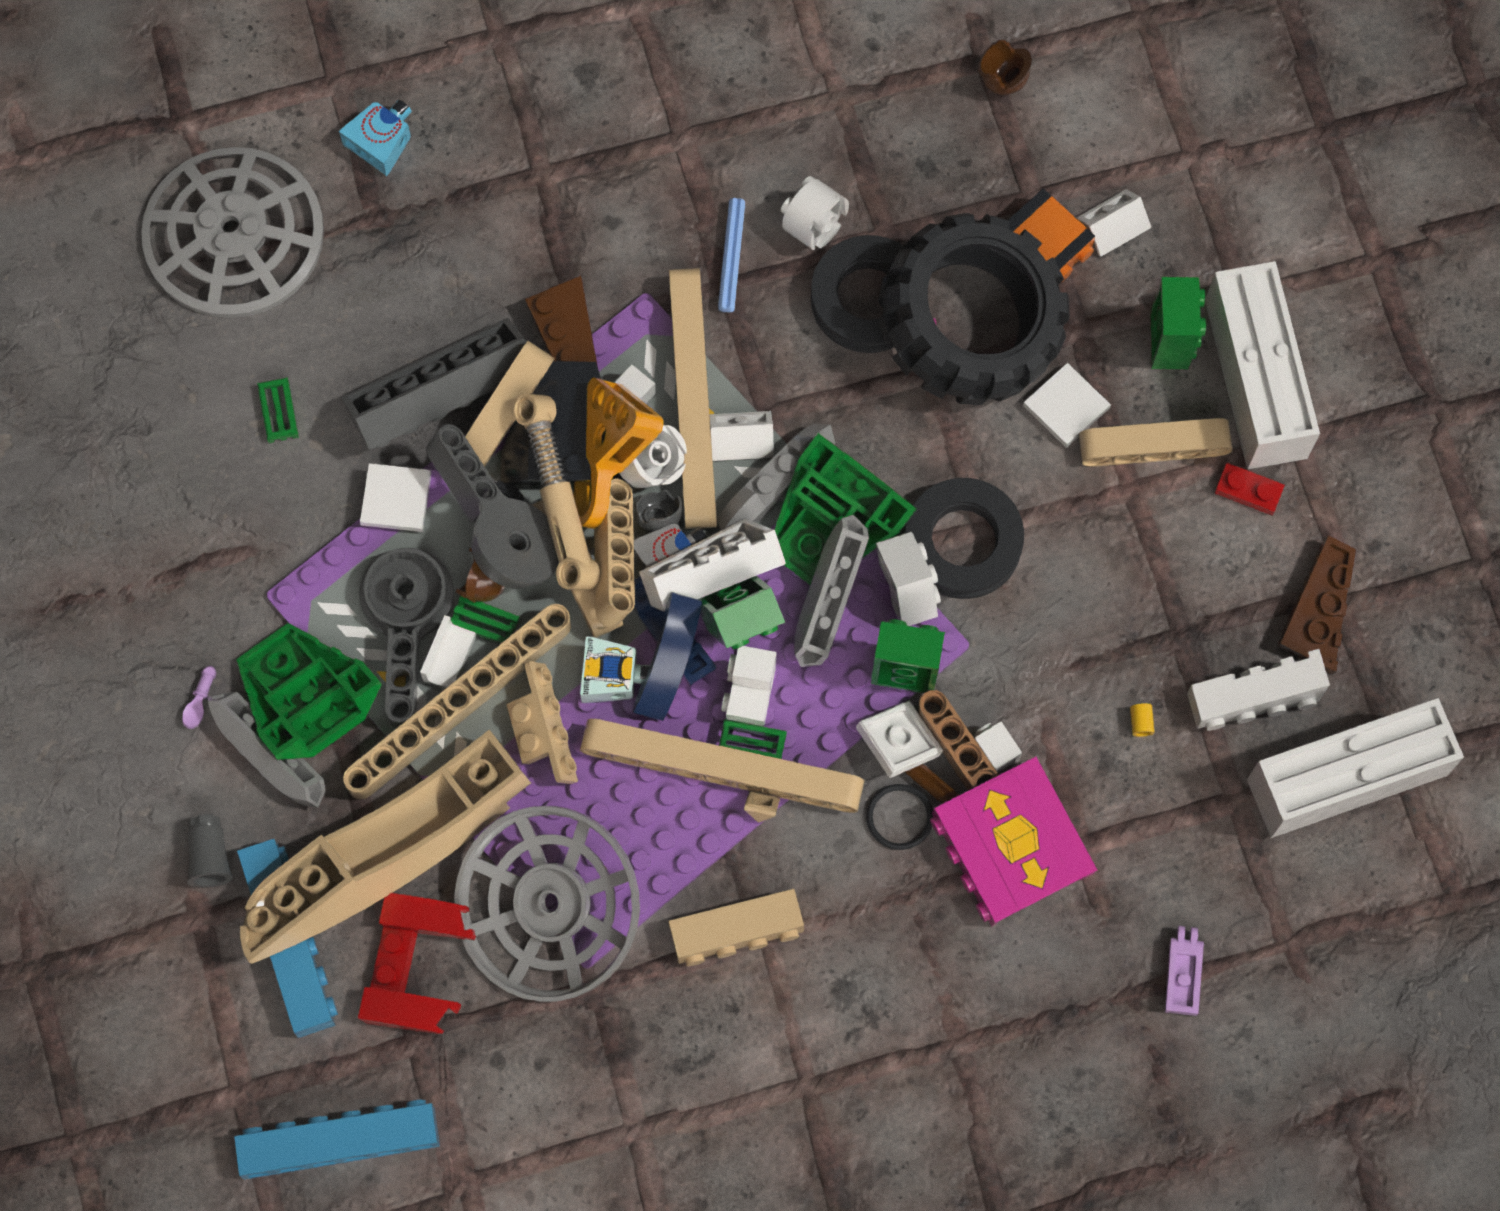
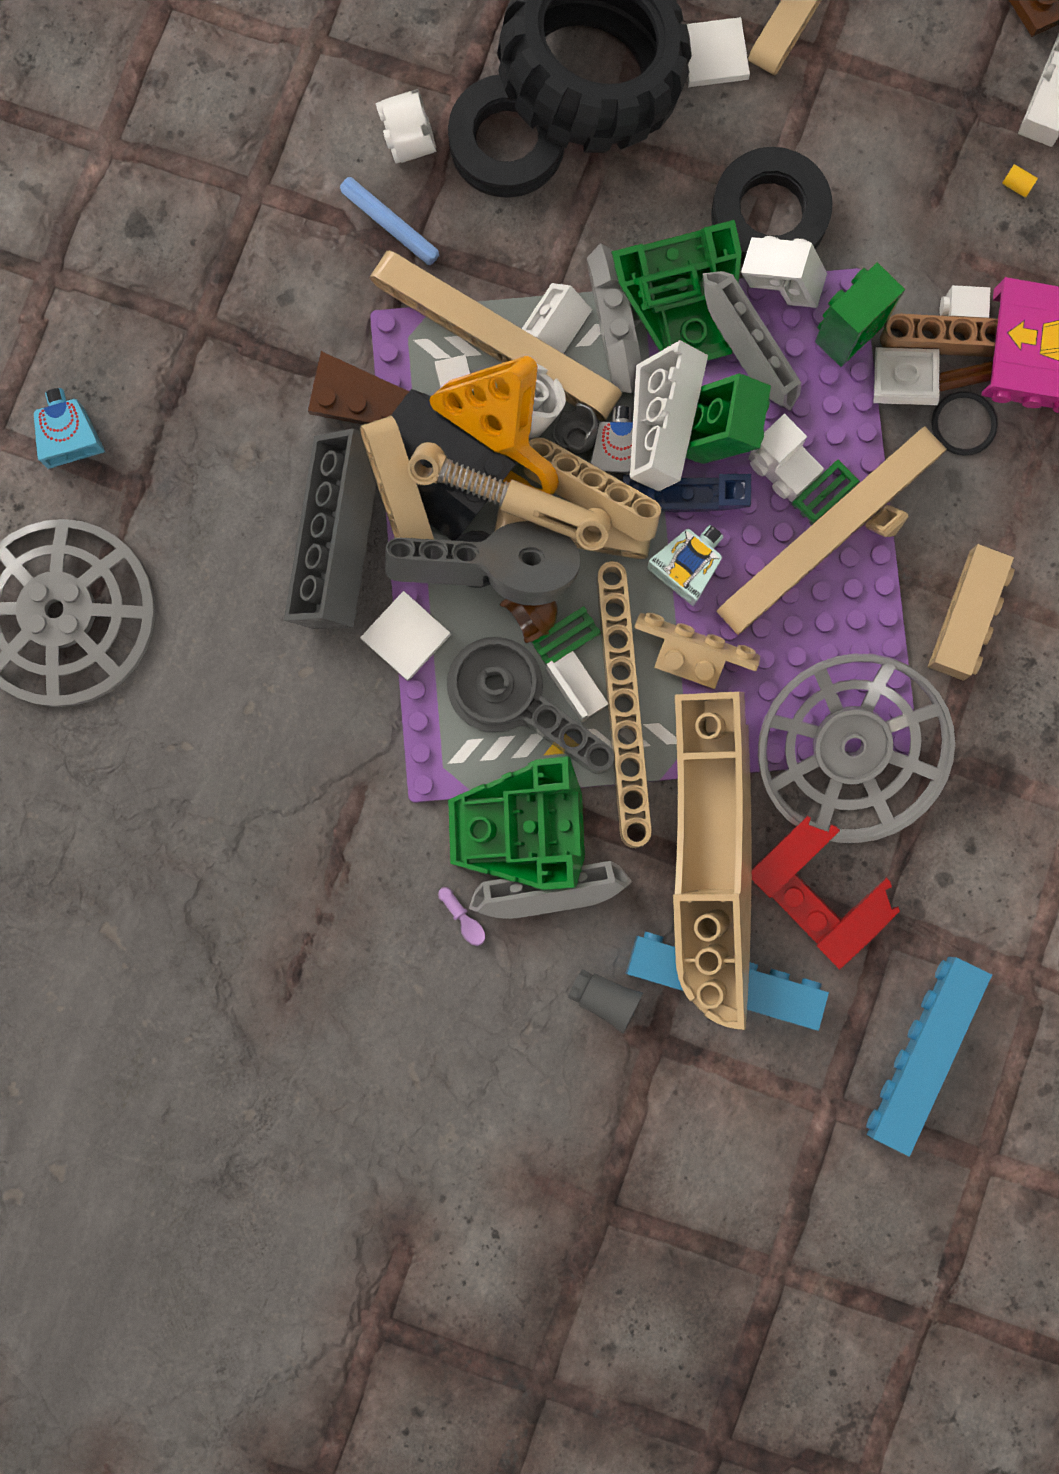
camera: 50 degrees left, 10 degrees up
(282, 434) = (276, 693): green tile -> none
(669, 657) = (720, 501): dark blue slope -> none

